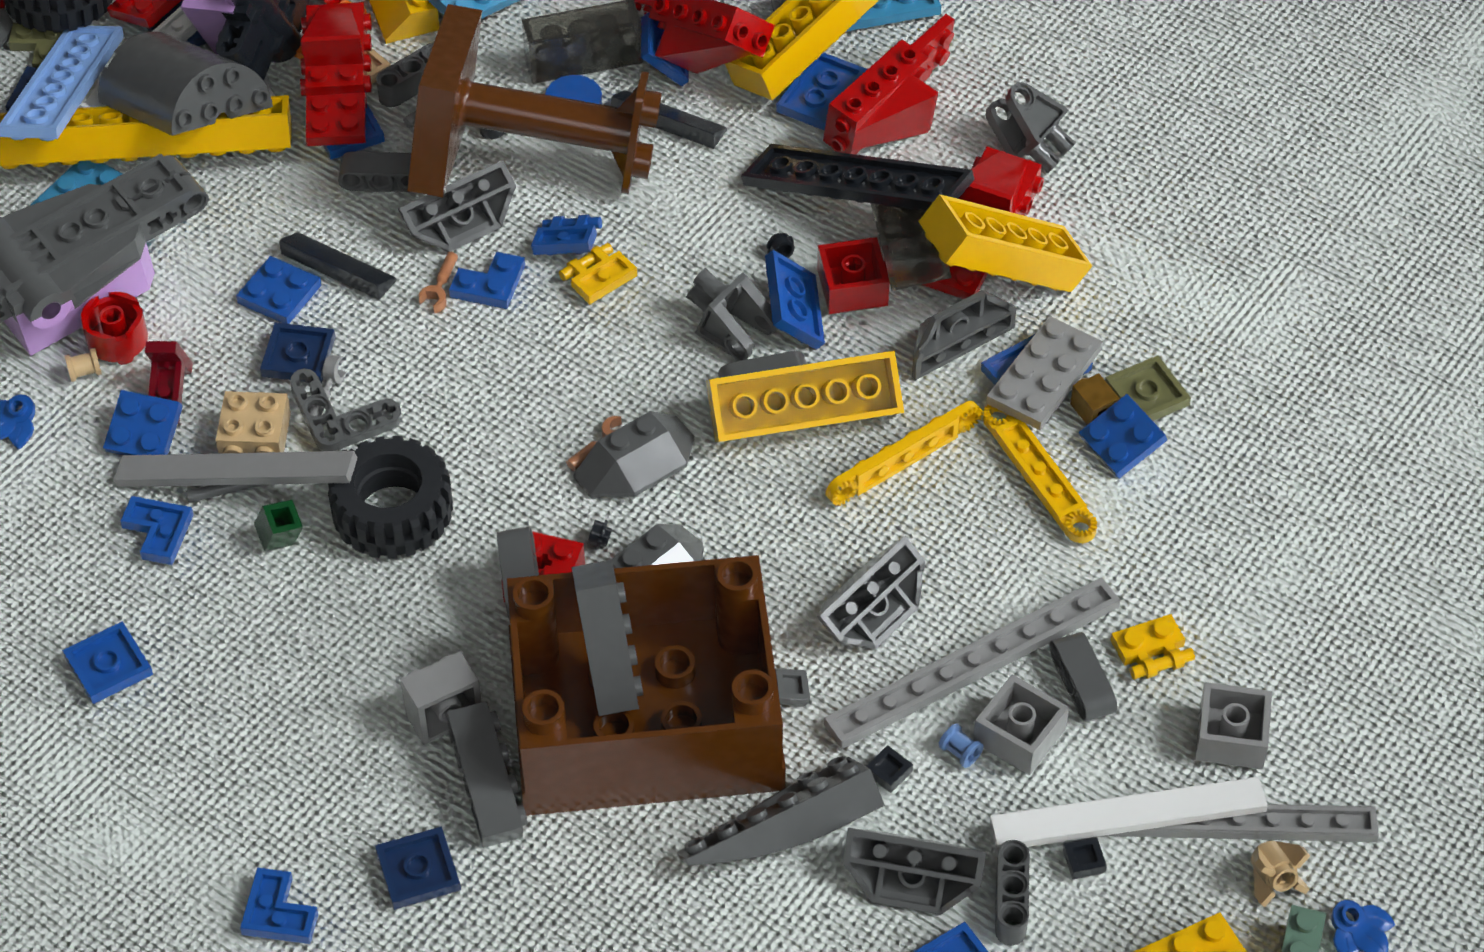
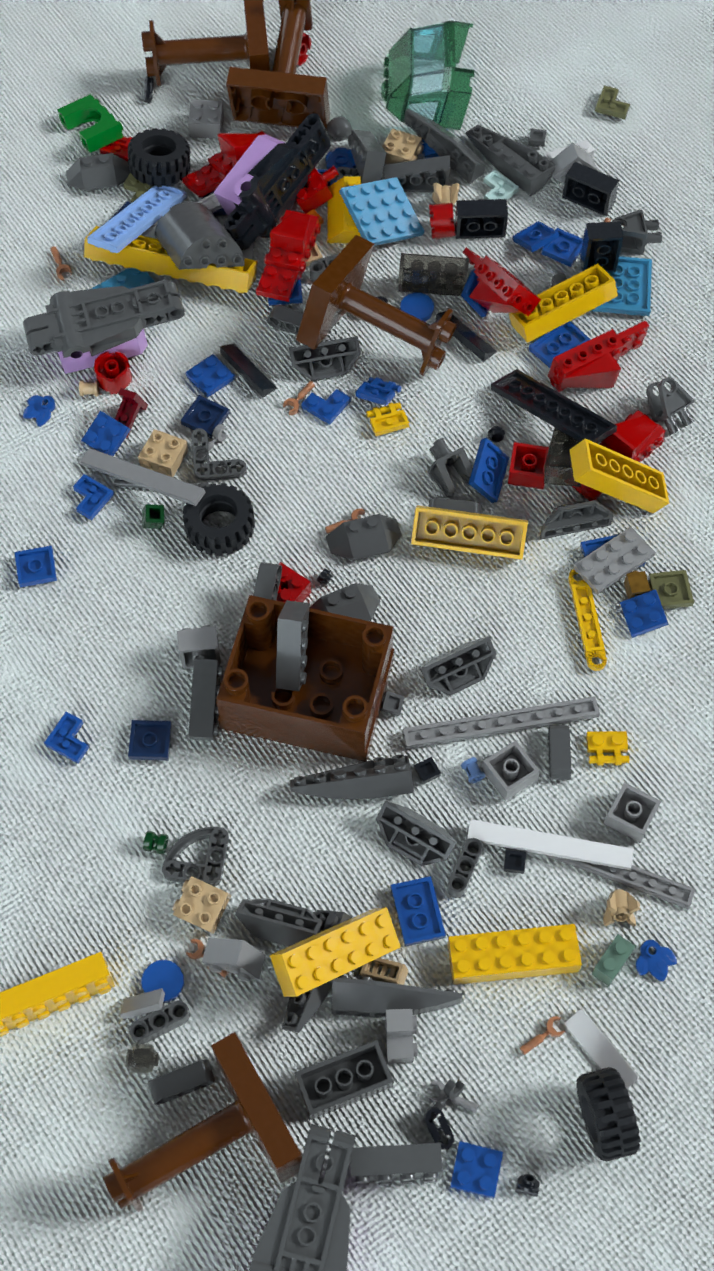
camera: 20 degrees right, 10 degrees up
(903, 453) = (514, 583): yellow plate -> none

